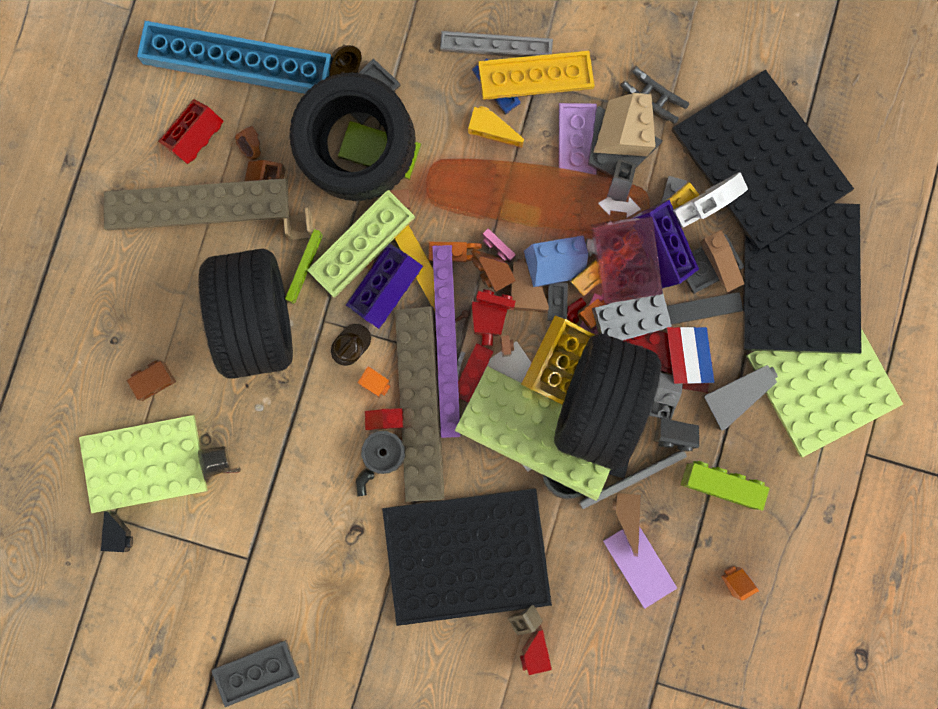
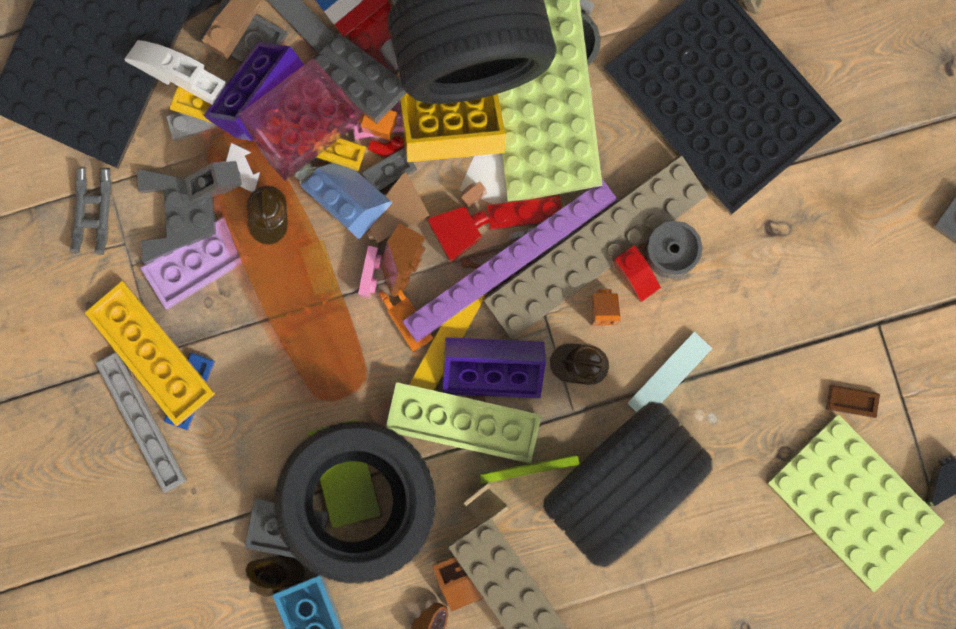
camera: 120 degrees left, 0 degrees up
(151, 380) = (762, 553): dark orange brick -> none
(208, 507) = (853, 401): none -> reddish brown tile
(215, 462) = (802, 423): clear smoke hat -> none
(304, 397) = (671, 372): none -> light aqua tile
(362, 480) = (717, 256): pearl dark grey arm -> none
(488, 297) = (435, 242): red plate -> none
(490, 126) = (239, 368): yellow slope -> none
(577, 202) = (267, 215): none -> dark brown piece
(627, 126) = (147, 213): tan wedge -> none

